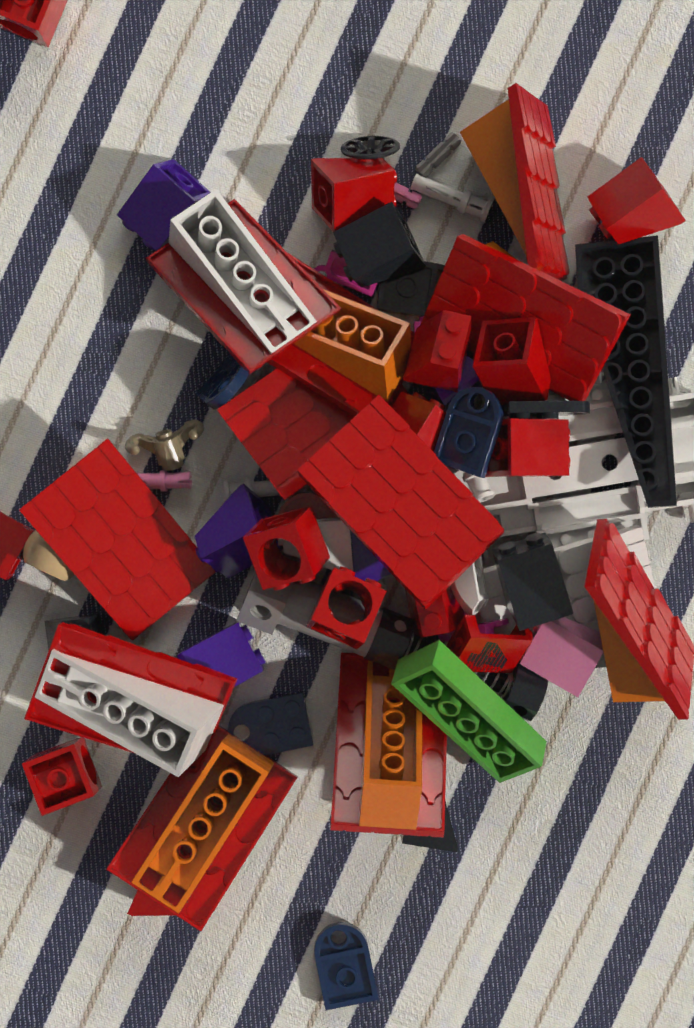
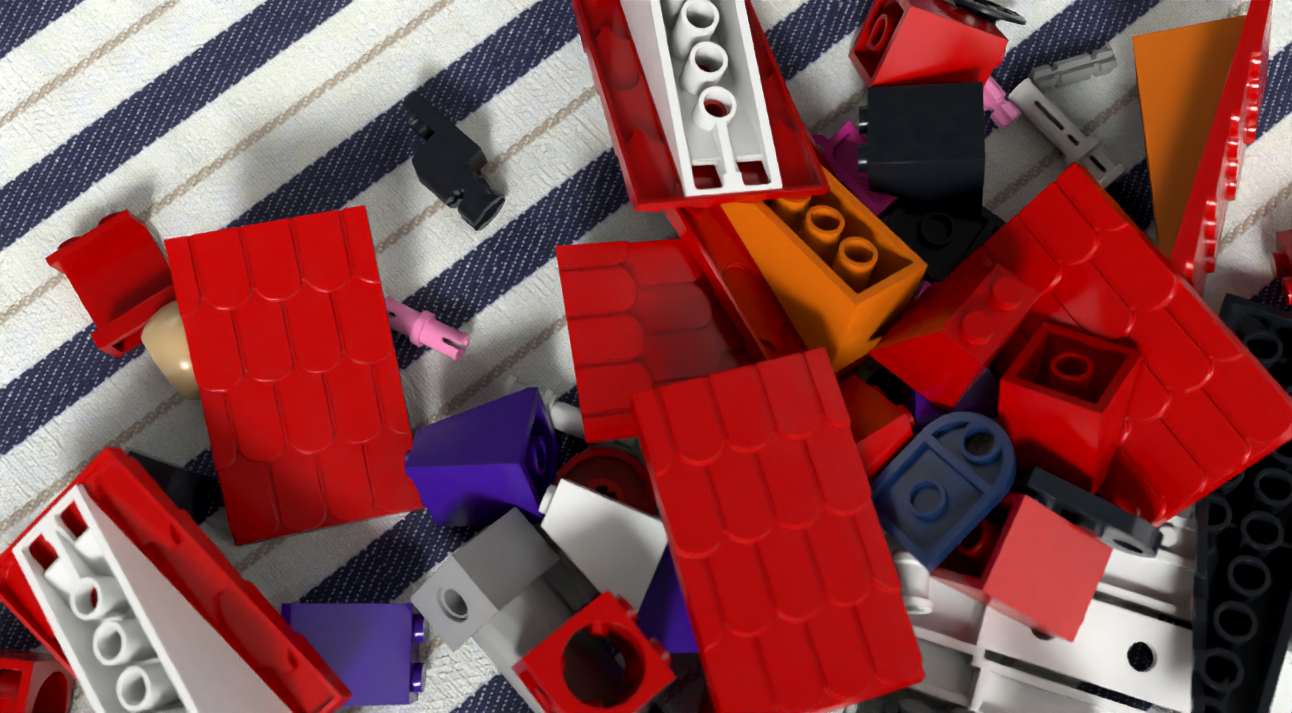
camera: 30 degrees right, 10 degrees down
(129, 385) = (452, 165): none -> black plate
(166, 445) = (455, 278): dark tan piece -> none
(223, 383) = (604, 220): dark blue plate -> none
(270, 564) = (506, 527): red brick -> none

